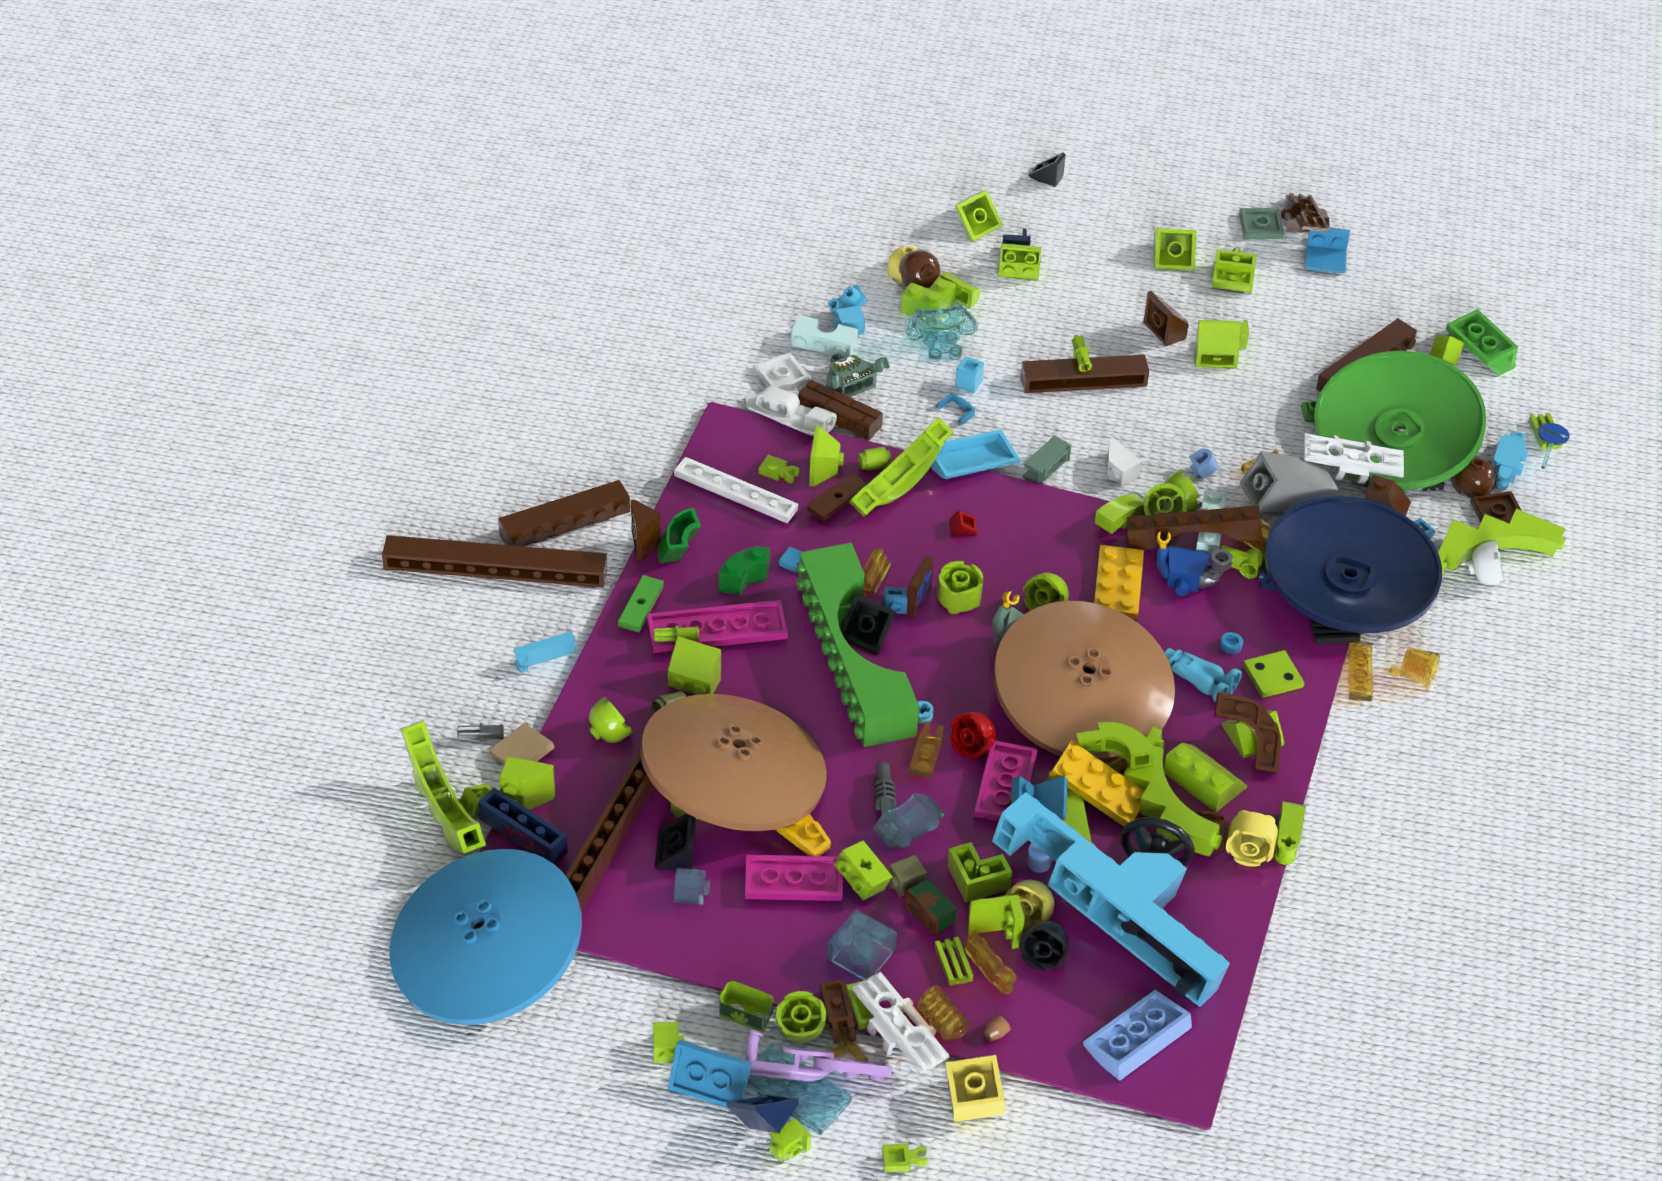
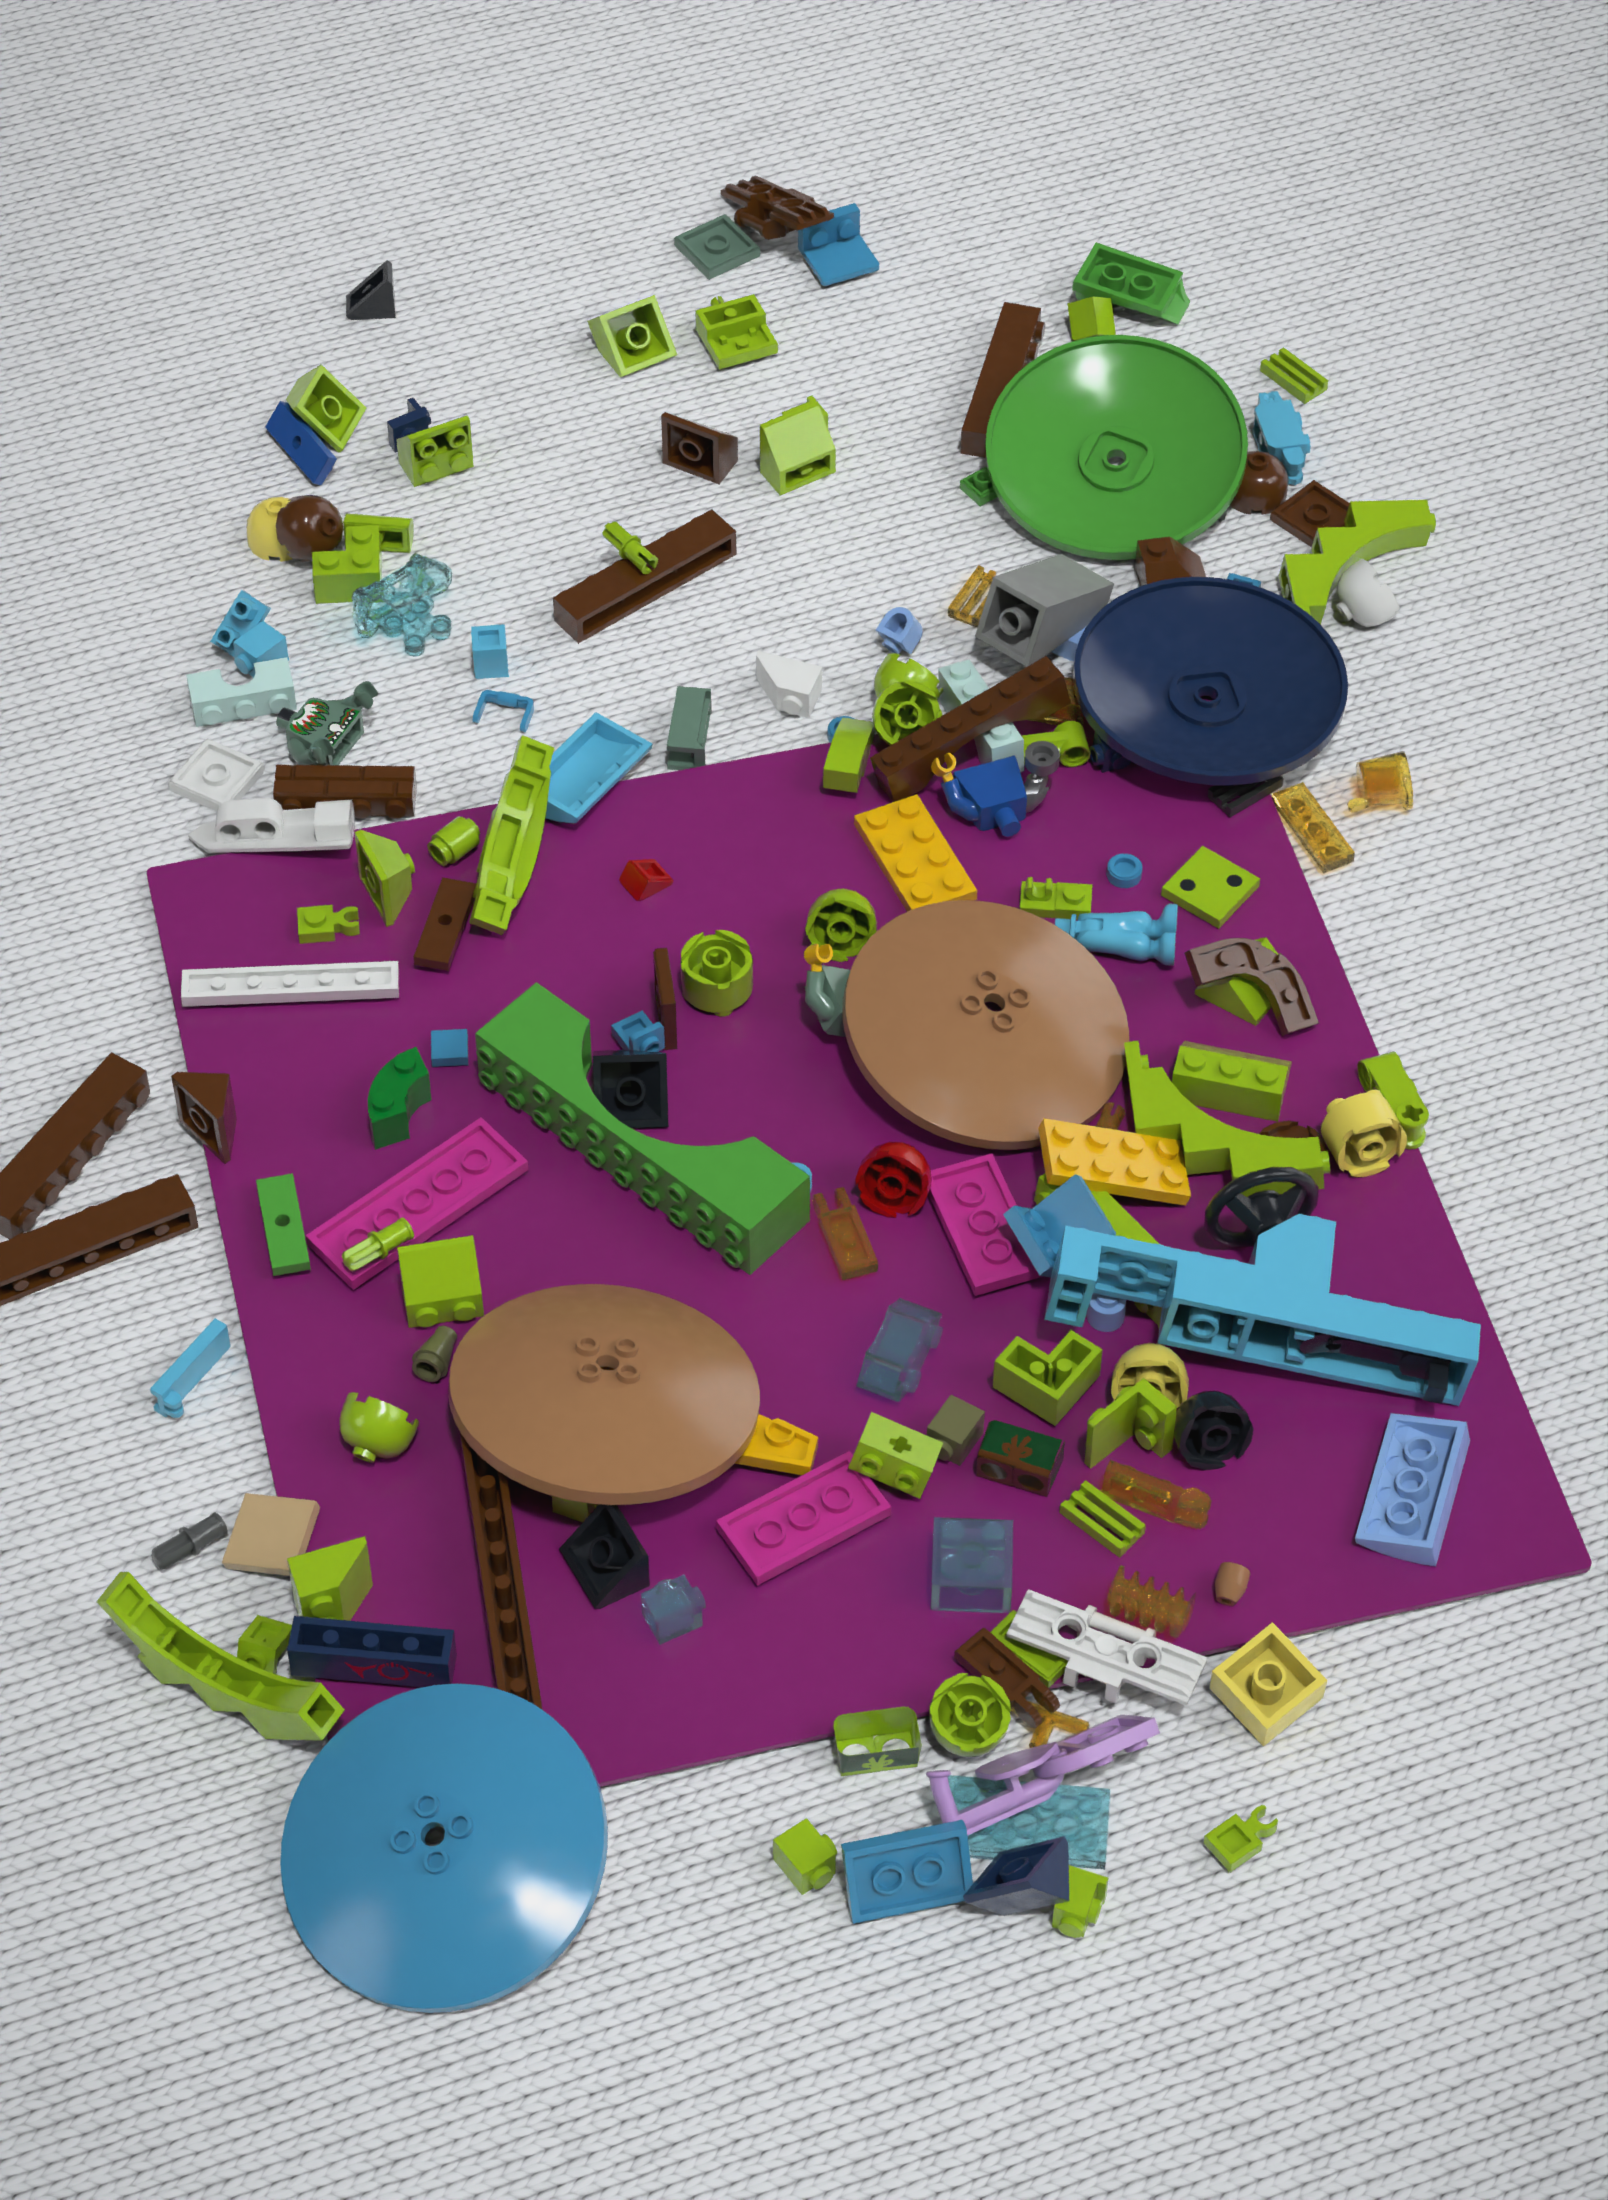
camera: 30 degrees left, 5 degrees up
(677, 535) = (263, 1098): green brick -> none
(877, 573) = (580, 998): clear yellow tile -> none
(884, 788) = (832, 1324): dark grey hinge -> none
(951, 228) = (301, 443): none -> blue tile
(1120, 740) = (1107, 1083): lime arch -> none
(1179, 639) = (1055, 899): none -> lime plate
(1353, 457) = (1070, 535): white piece -> none
(1554, 435) = (1314, 376): blue piece -> none

